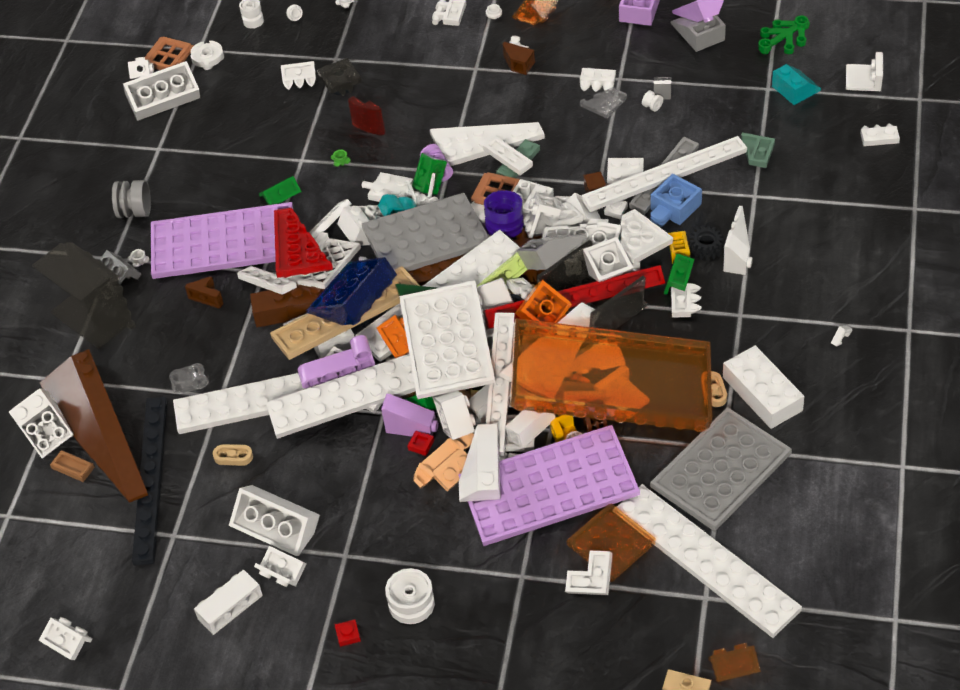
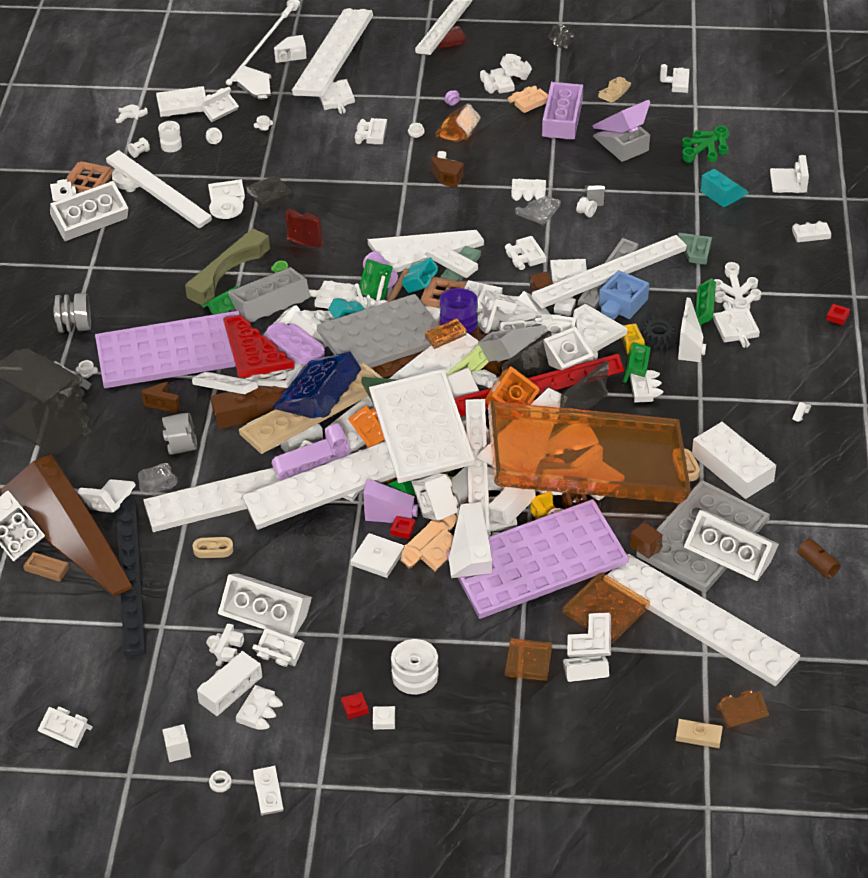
camera: 10 degrees left, 5 degrees down
(139, 397) = (108, 498): none -> white bracket
(168, 663) = (176, 743): none -> white brick
(216, 332) = (179, 433): none -> light grey brick
(225, 23) = (135, 151): none -> white bush
(227, 558) = (221, 644): none -> white hips
(233, 69) = (159, 189): none -> white tile
(253, 629) = (258, 707): none -> white plate
(295, 90) = (226, 207): none -> white dish
(311, 134) = (249, 247): none -> olive arch
(324, 186) = (270, 294): none -> light grey slope
(339, 240) = (295, 342): none -> lavender tile
(374, 648) = (384, 717): none -> white plate
(392, 471) = (377, 555): none -> white plate
(452, 181) = (397, 287): none -> medium nougat bar
(474, 170) = (419, 275): none -> teal brick
(485, 239) = (445, 333): none -> clear orange plate
(526, 593) = (528, 659): none -> clear orange tile
(582, 606) = (586, 668): none -> white slope
(589, 148) = (530, 252): none -> white plate
(660, 472) = (646, 540): none -> reddish brown brick
(745, 482) = (730, 545): none -> white slope
(758, 210) = (705, 301): none -> green plate
(787, 236) = (736, 324): none -> white plate
(794, 214) = (739, 302): none -> white plant
(836, 500) = (818, 558): none -> reddish brown pin
(894, 229) = (838, 314): none -> red plate

